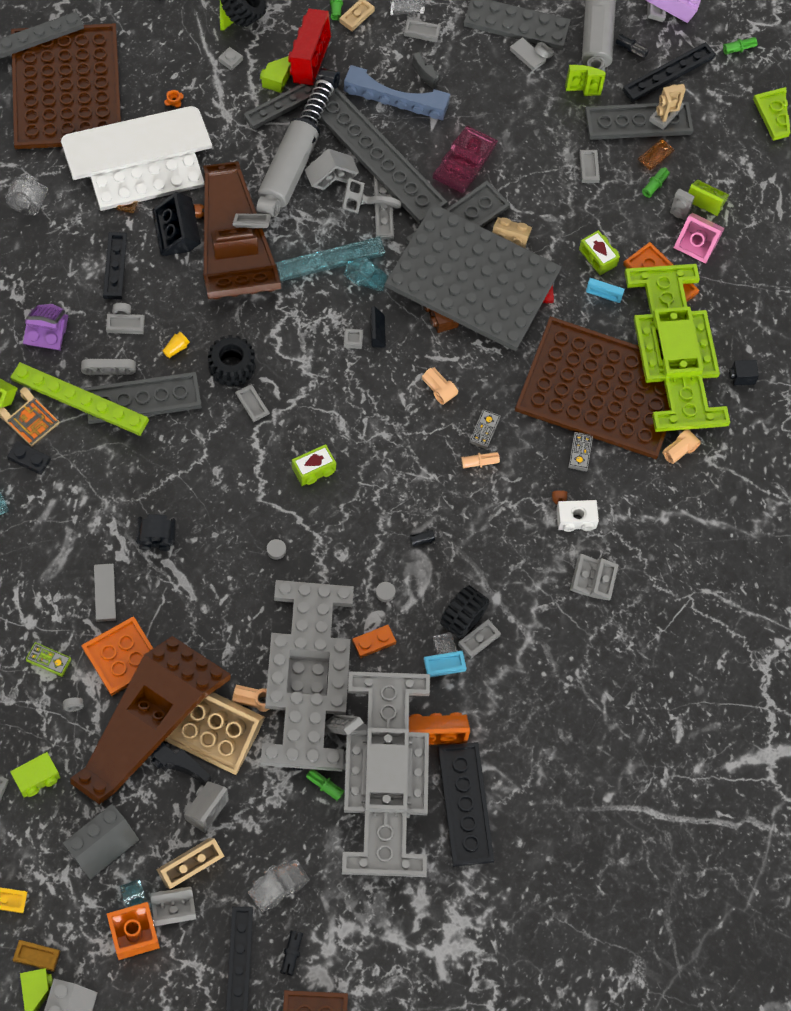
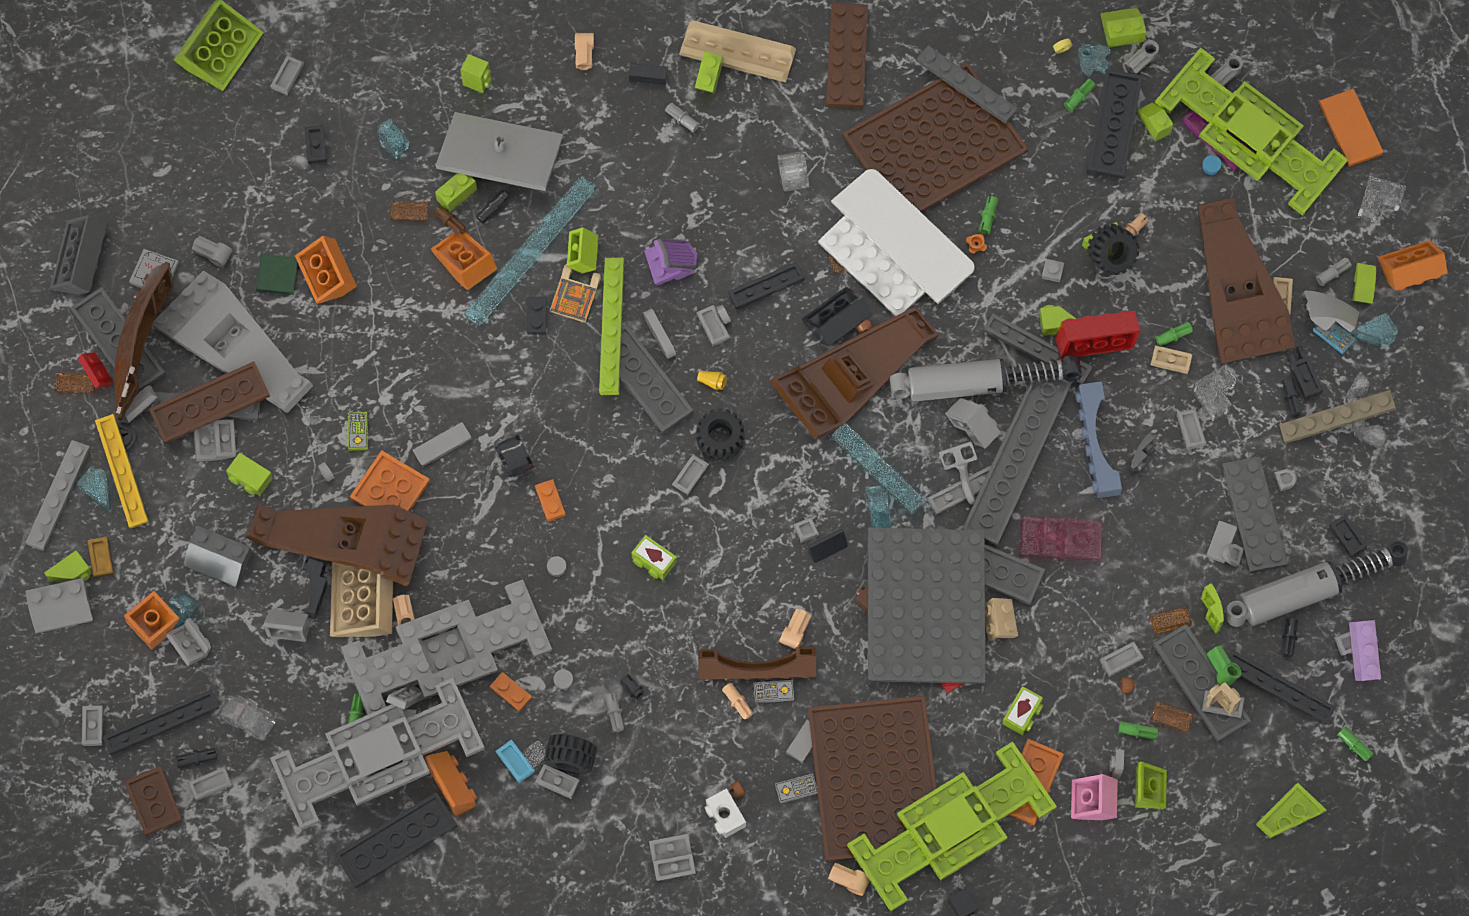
camera: 70 degrees right, 5 degrees up
(155, 78) = (988, 215): none -> bright green pin
(190, 863) = (231, 636): tan brick -> none
(211, 526) = (550, 500): none -> orange plate
(251, 220) = (875, 378): light grey tile -> none
(324, 952) = (210, 783): none -> light grey tile
(439, 563) = (614, 712): none -> light grey axle
(473, 395) = (797, 664): none -> reddish brown arch
(542, 429) = (801, 744): none -> light grey tile
(573, 118) = (1170, 620): none -> clear orange tile
(605, 290) = (982, 734): medium azure tile -> none
(614, 172) = (1127, 685): none -> dark orange hinge
(642, 96) = (1227, 671): none -> bright green piece

